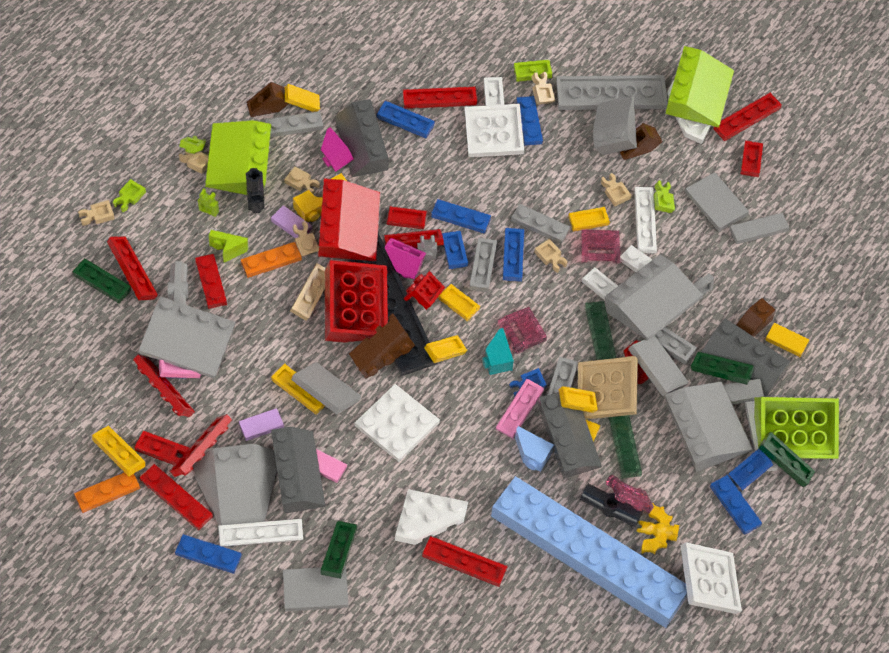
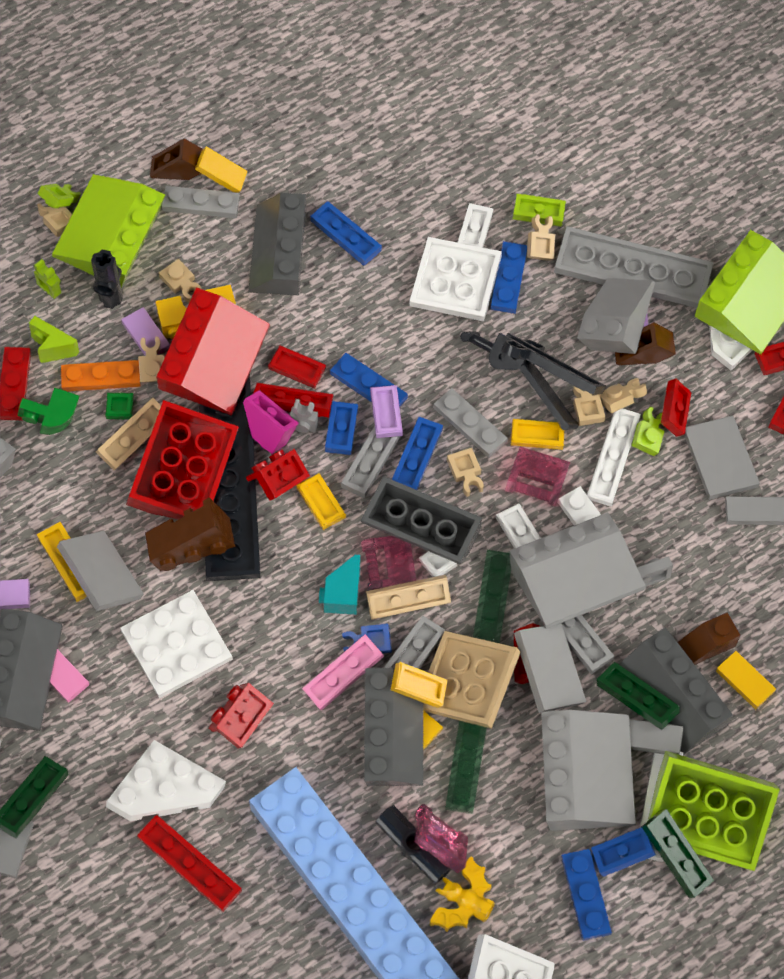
camera: 20 degrees right, 5 degrees up
(250, 294) = (52, 417): none -> green brick
(292, 276) = (119, 406): none -> green tile
(335, 151) = (235, 251): dark pink slope -> none
(439, 97) = (401, 215): red plate -> none
(445, 349) = (276, 561): yellow tile -> none
(460, 455) = (240, 714): none -> bracket
(482, 230) = (386, 411): none -> lavender tile
(533, 449) = (339, 736): light blue slope -> none
(536, 293) = (422, 520): none -> dark grey slope
(544, 347) = (408, 597): none -> tan tile
(554, 320) = (436, 564): none -> white tile
(558, 168) = (518, 354): none -> black piece
(635, 179) = (620, 396): none -> tan plate
(675, 176) = (676, 407): none -> red plate

